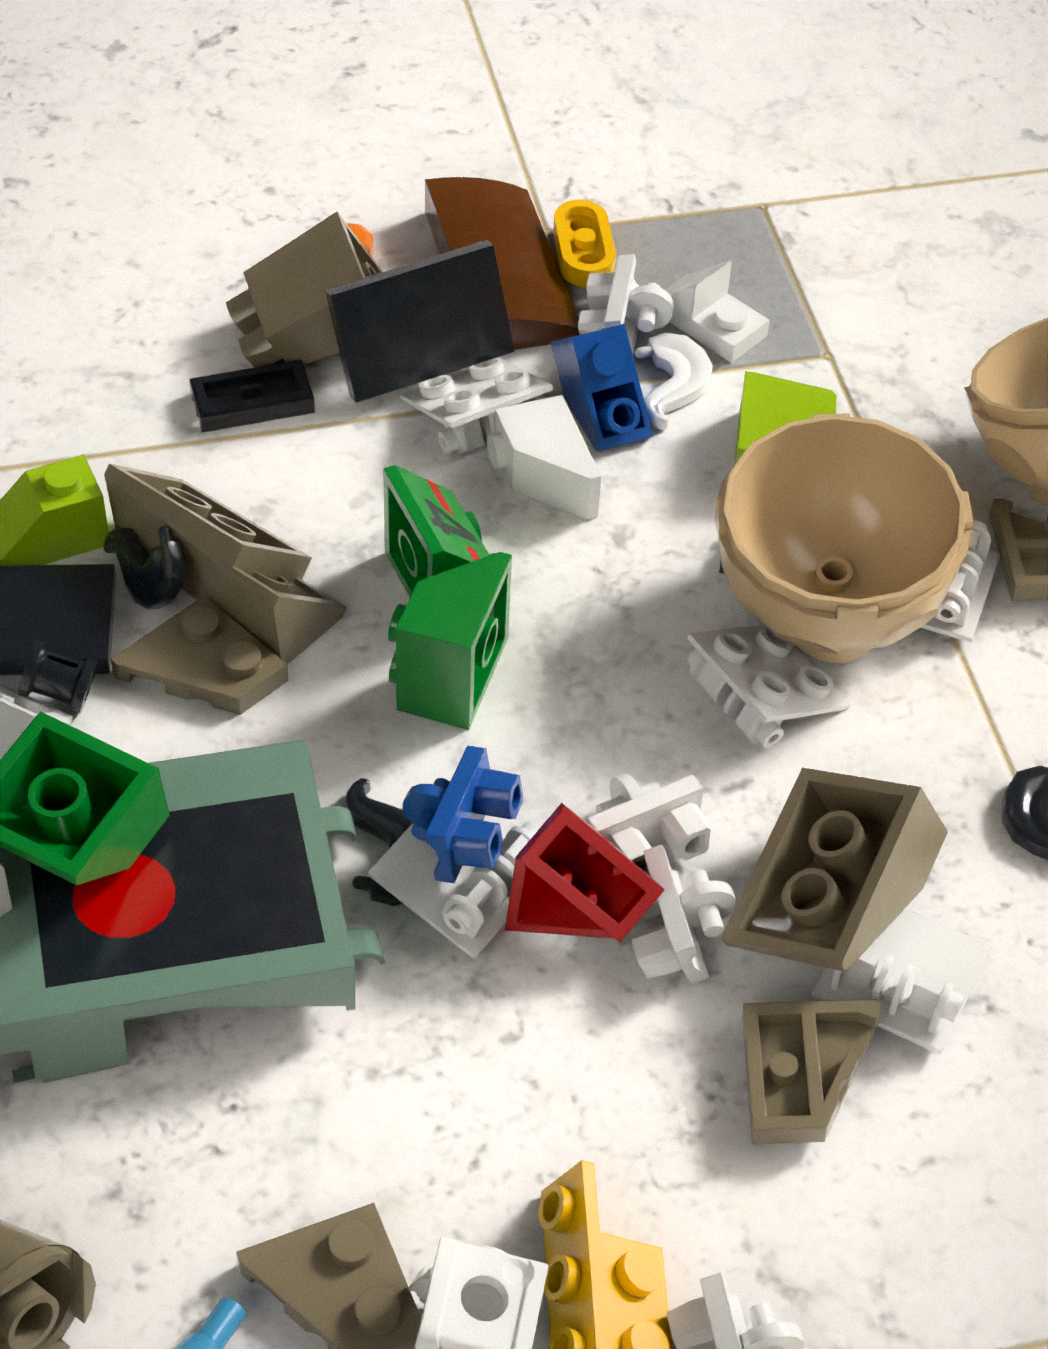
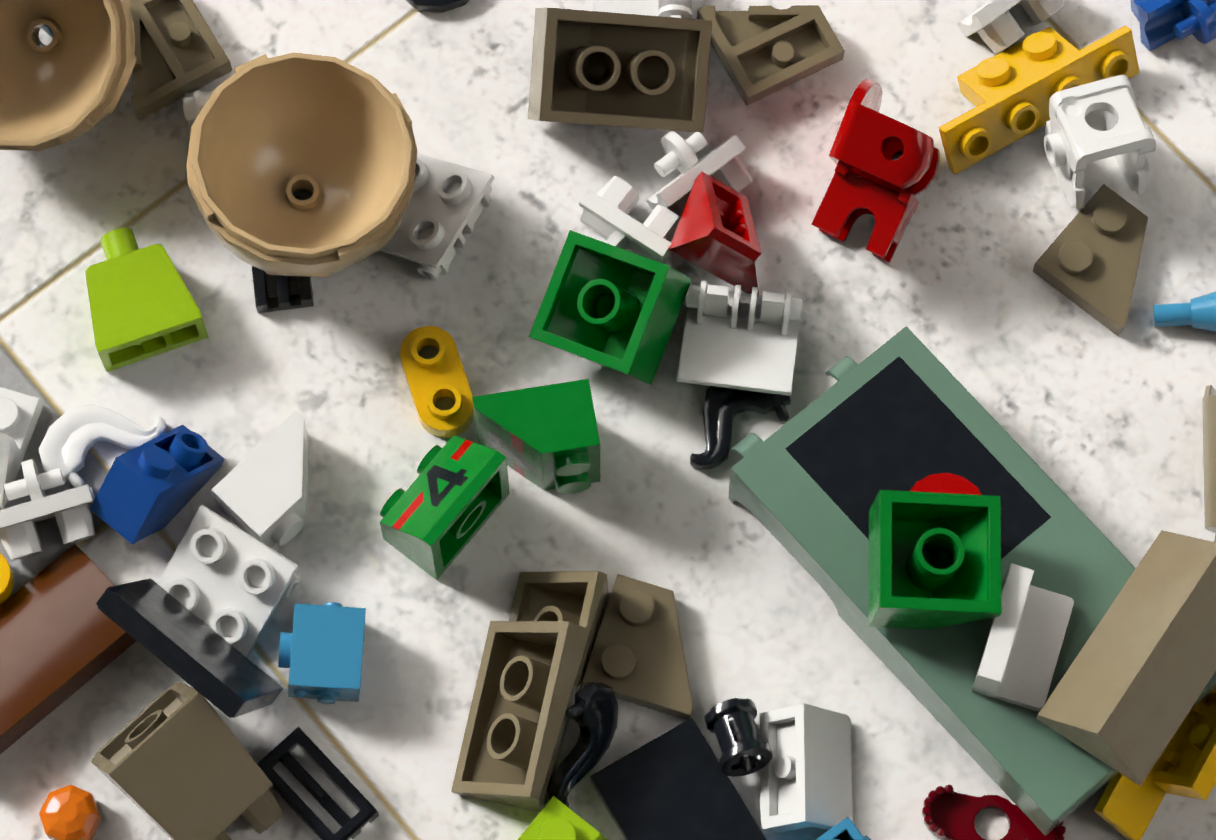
camera: 115 degrees left, 20 degrees up
(361, 428) = (324, 652): none -> dark azure head
(454, 811) = (743, 329): blue hips -> none
(563, 747) = (610, 307): none -> green slope
(569, 1022) = (866, 150): none -> red piece
(579, 622) = (436, 379): none -> yellow plate

